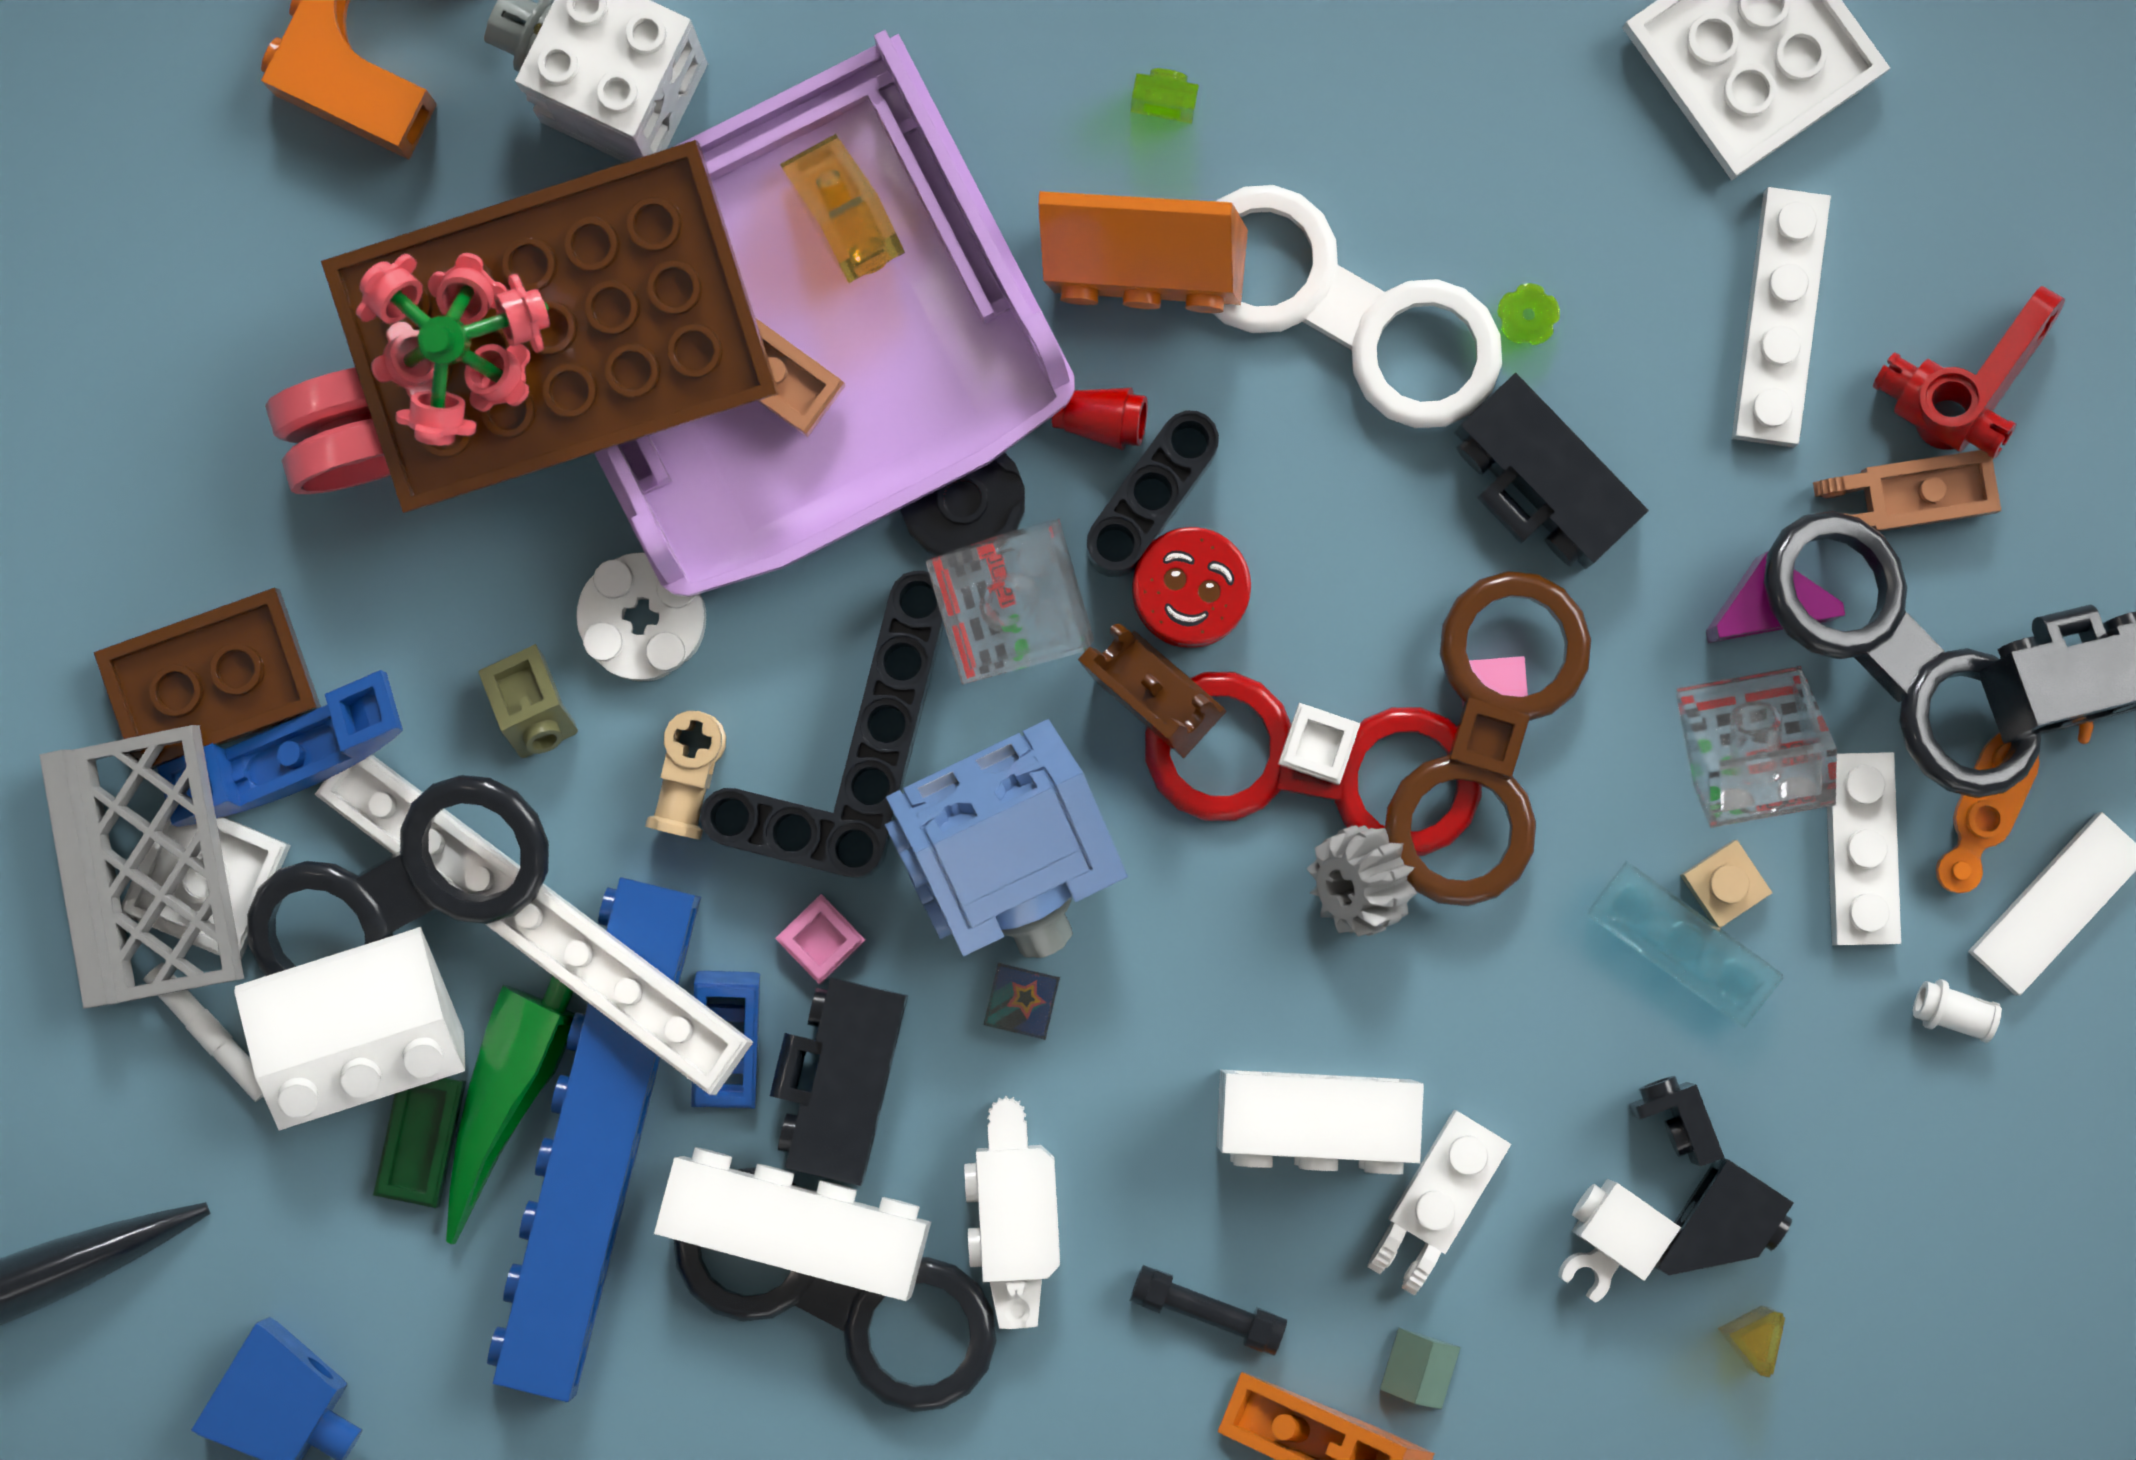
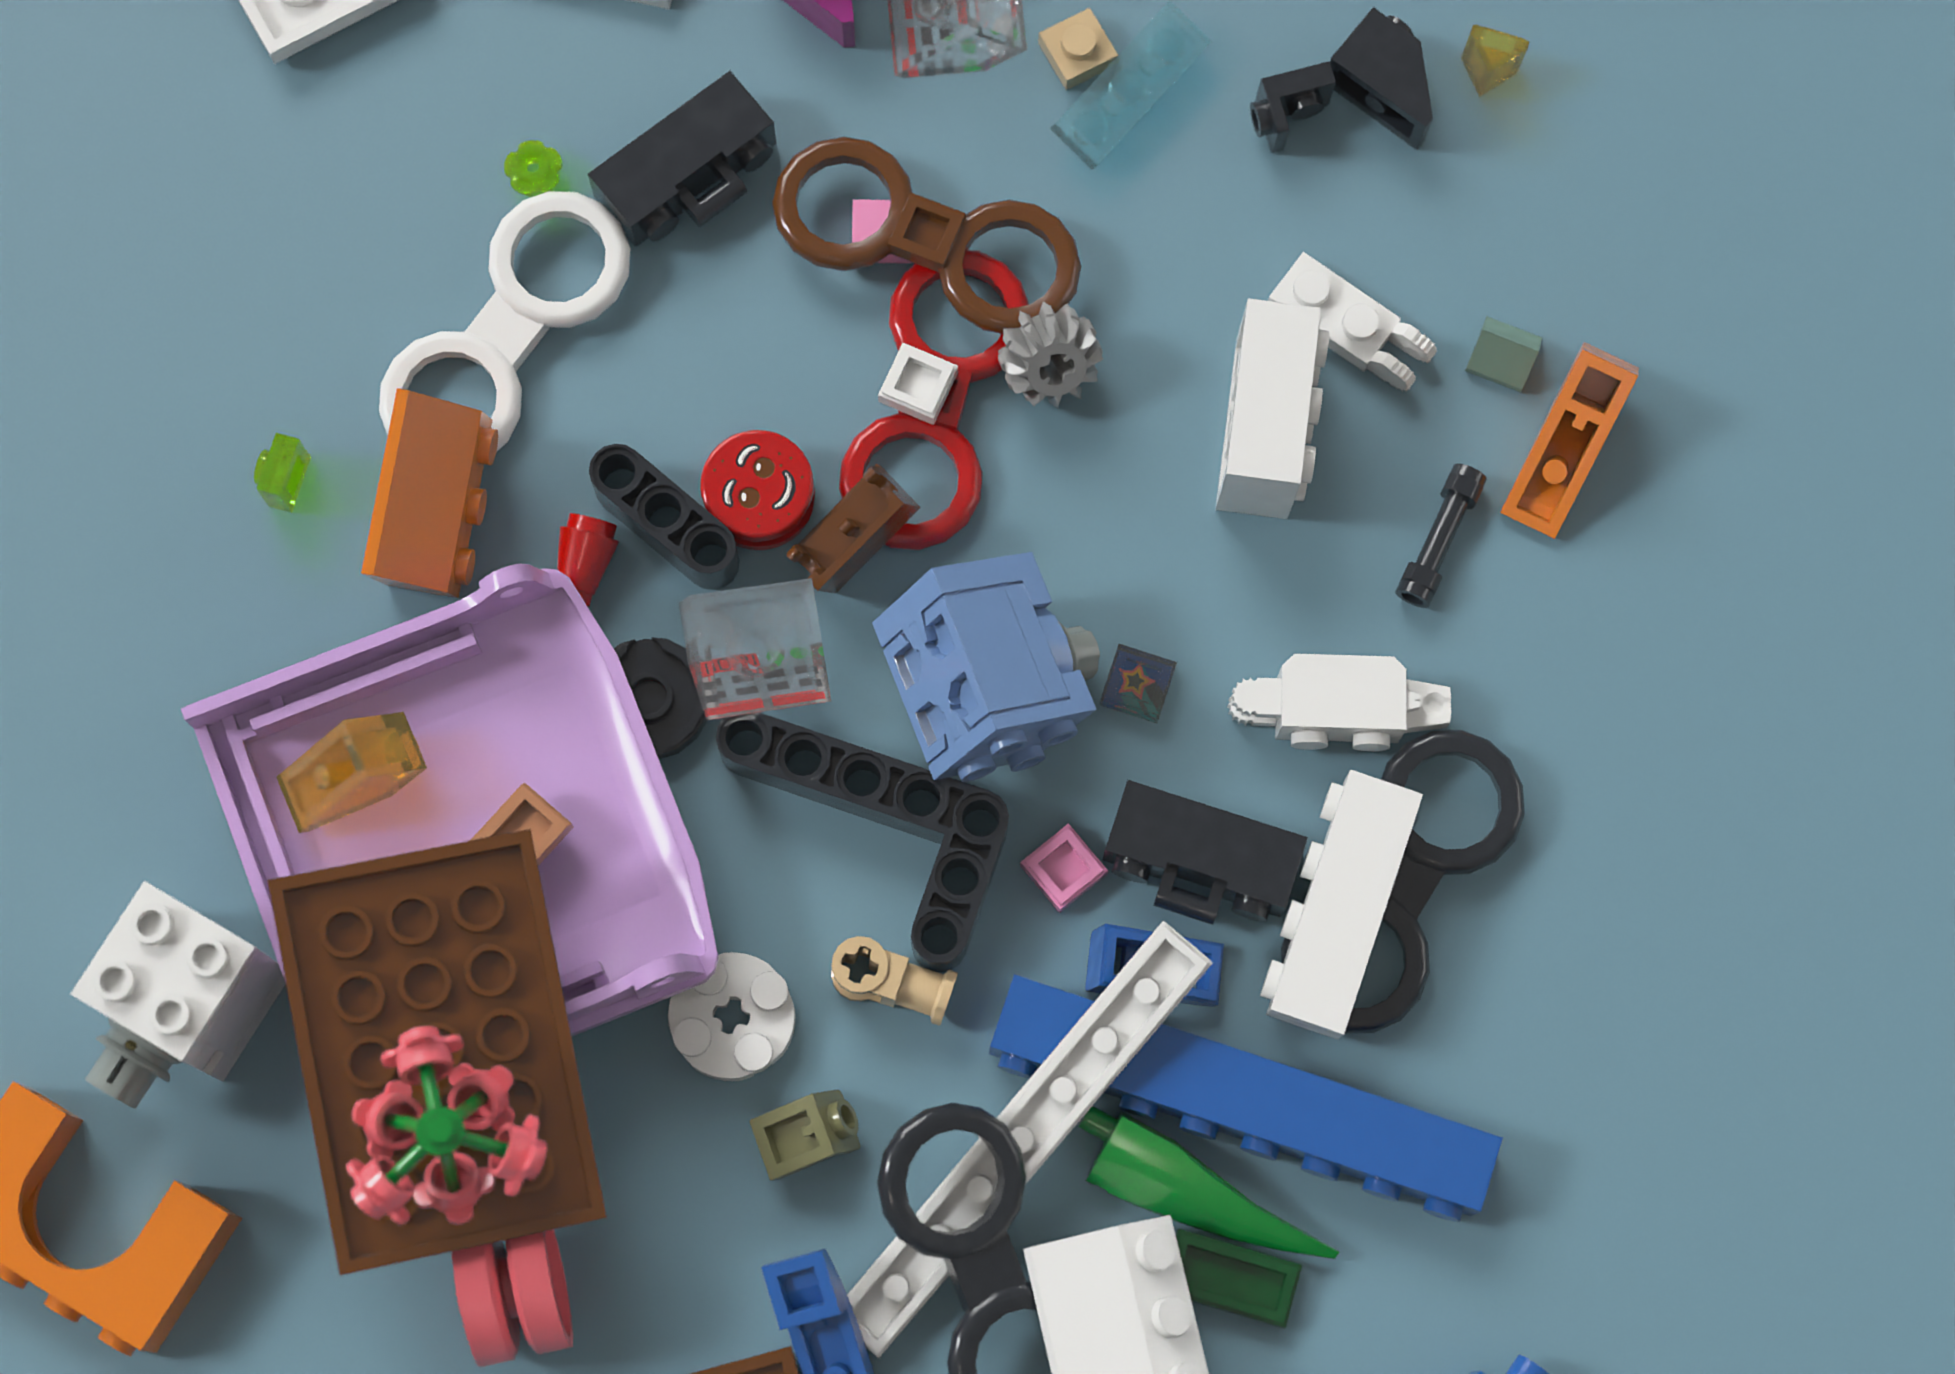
camera: 85 degrees left, 10 degrees down
(1622, 1233) = (1391, 162): white brick -> none

